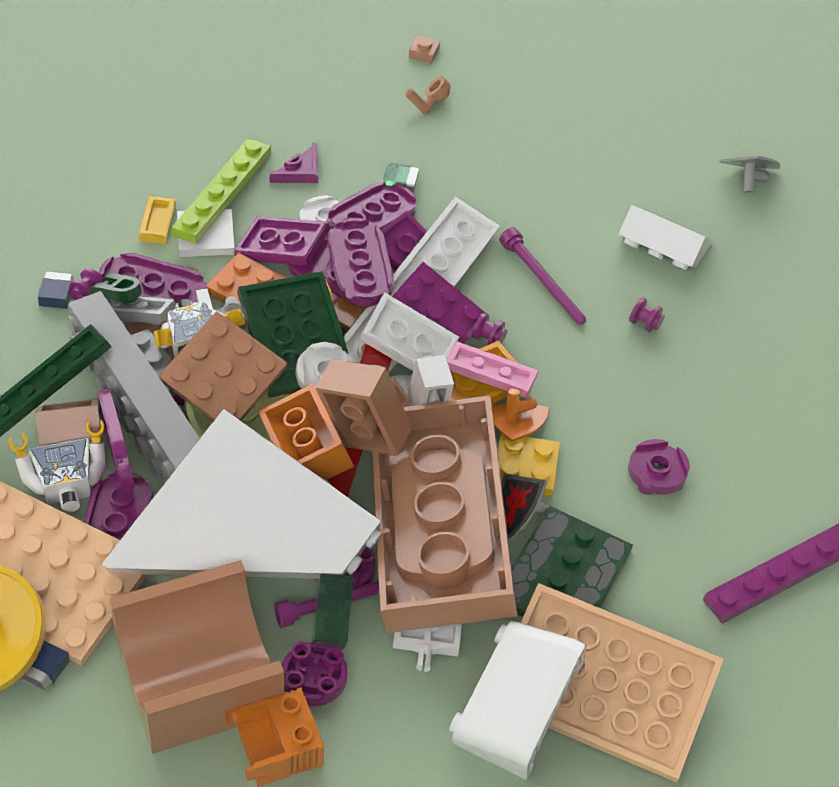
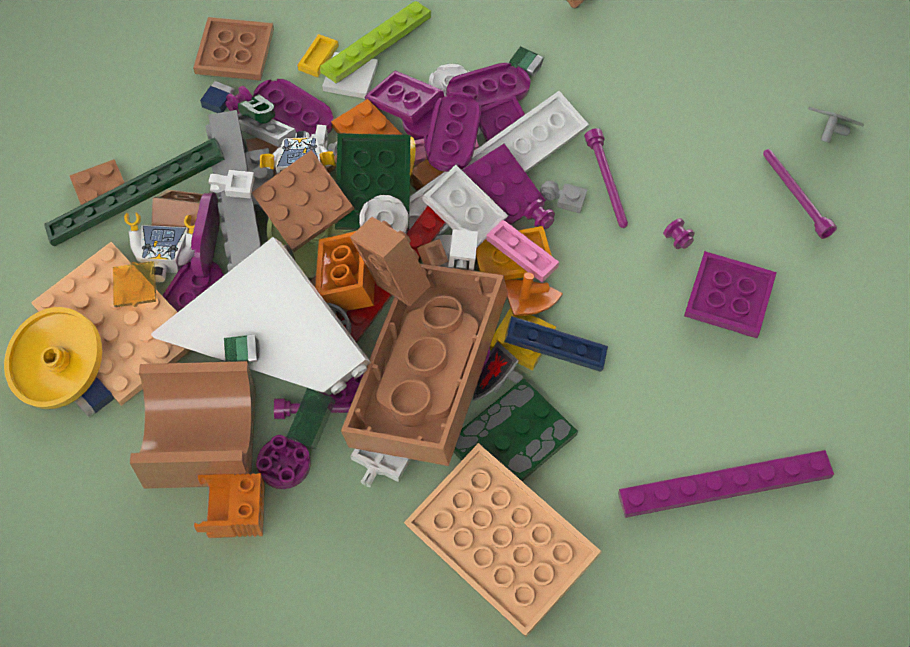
camera: 25 degrees right, 10 degrees up
(48, 518) = (134, 284): none -> clear yellow piece
(53, 232) = (233, 48): none -> nougat plate
(139, 368) = (235, 184): none -> white plate
(227, 548) = (242, 349): none -> clear green piece
(298, 169) = (448, 35): tile -> none
(511, 305) = (570, 197): none -> light grey plate
(518, 696) = (422, 530): white windscreen -> none
(569, 459) = (556, 344): none -> dark blue tile
(653, 480) = (626, 383): magenta plate -> none
(664, 238) = (727, 167): white slope -> none
(727, 363) = (730, 294): none -> magenta plate
(787, 273) = (823, 226): none -> magenta piece

